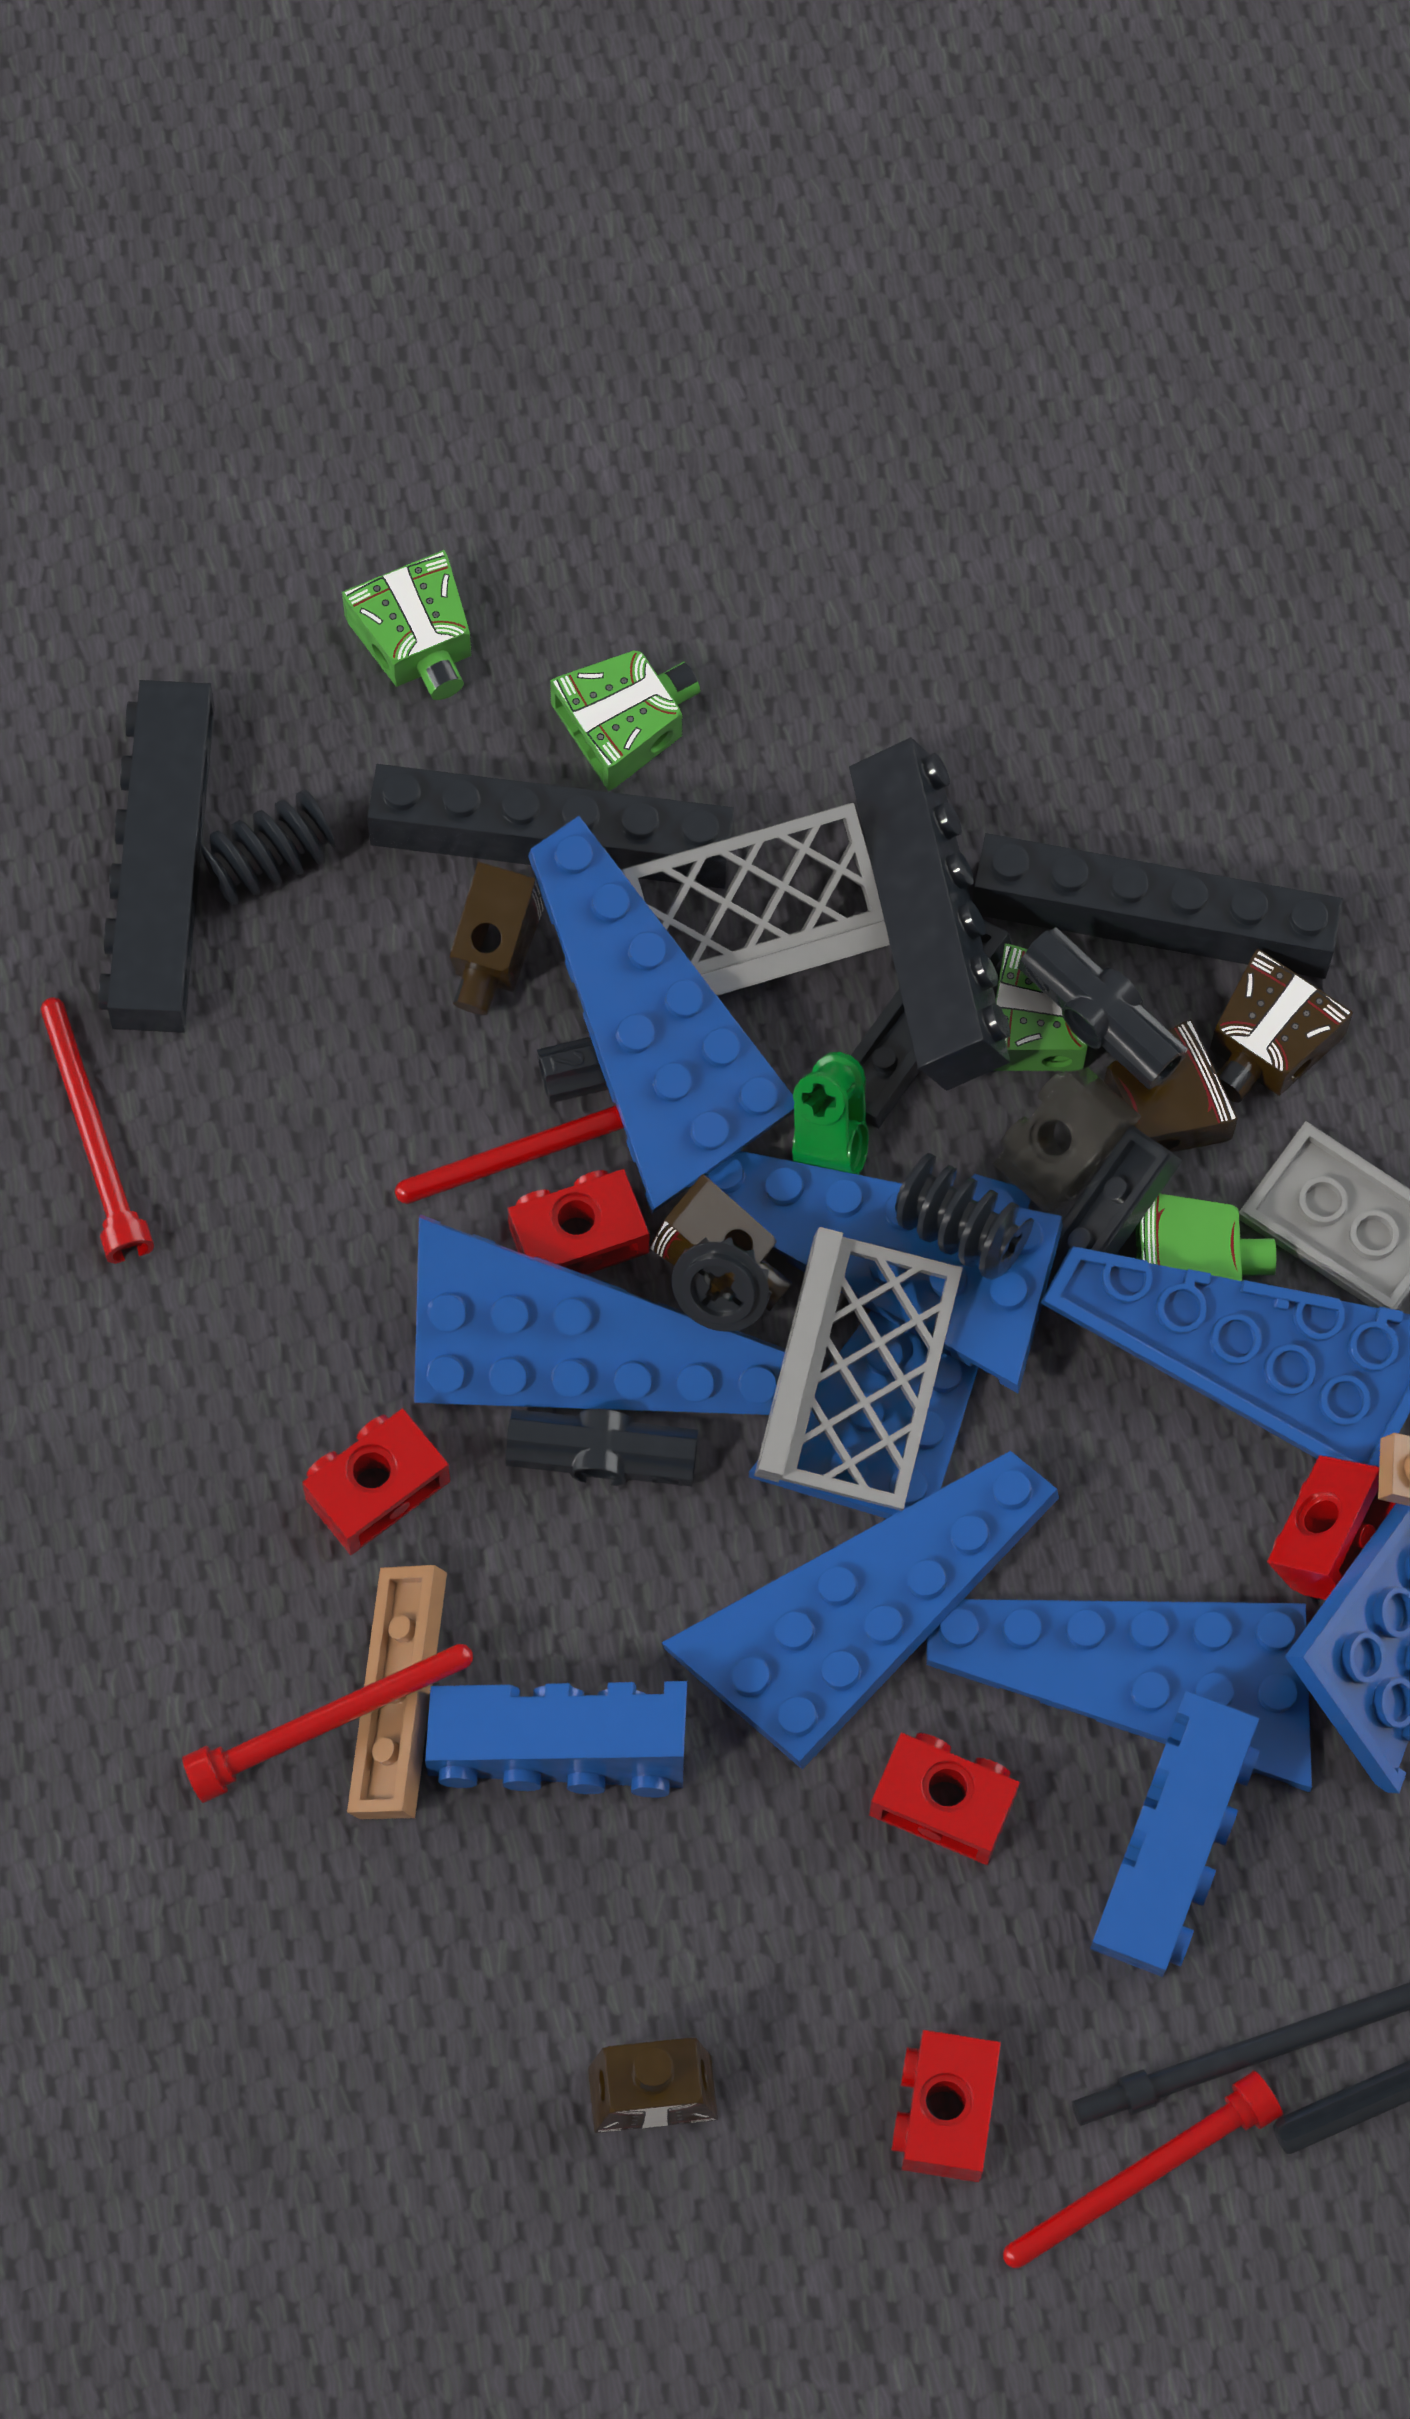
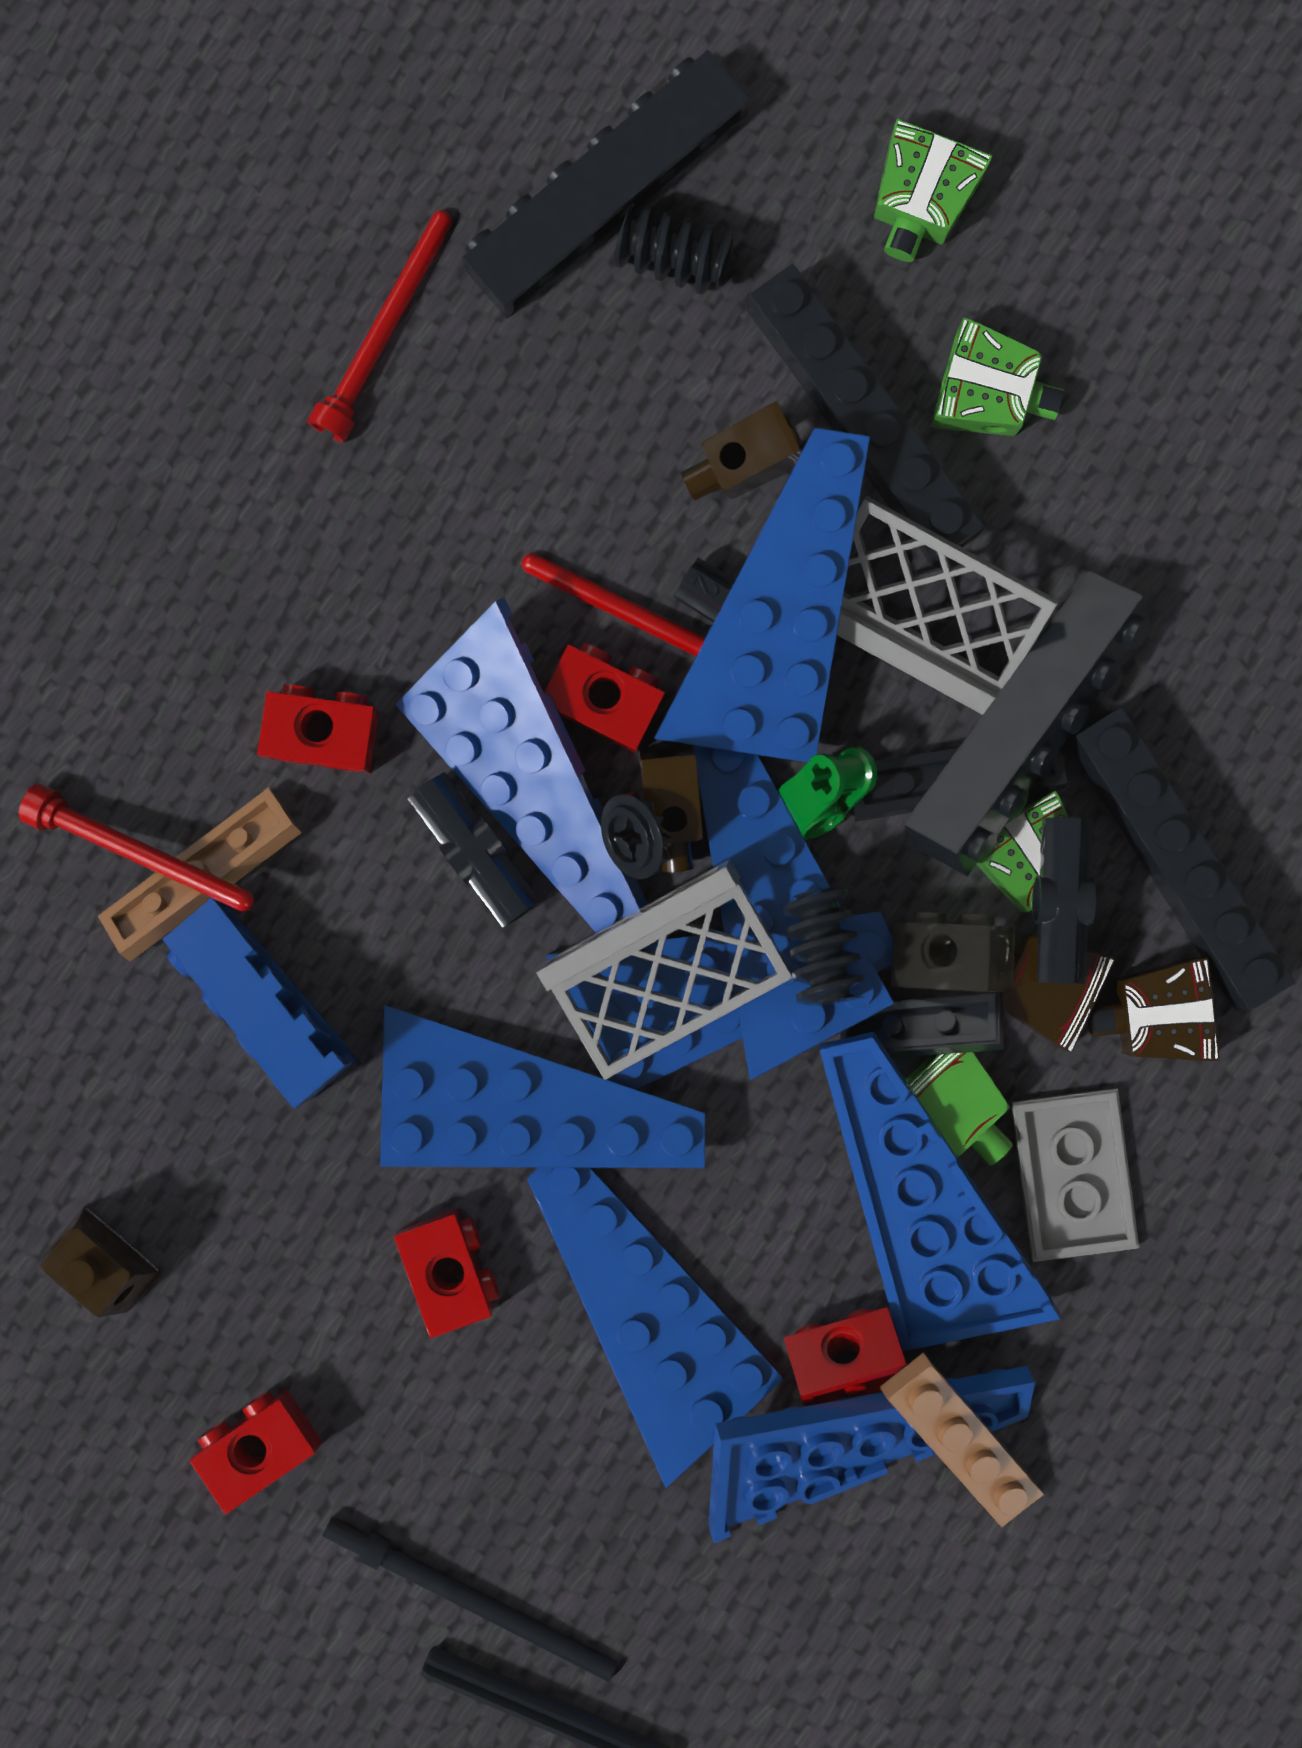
camera: 50 degrees right, 20 degrees up
(1175, 1834) = (548, 1441): blue wedge -> none
(1246, 2106) = (425, 1625): red piece -> none

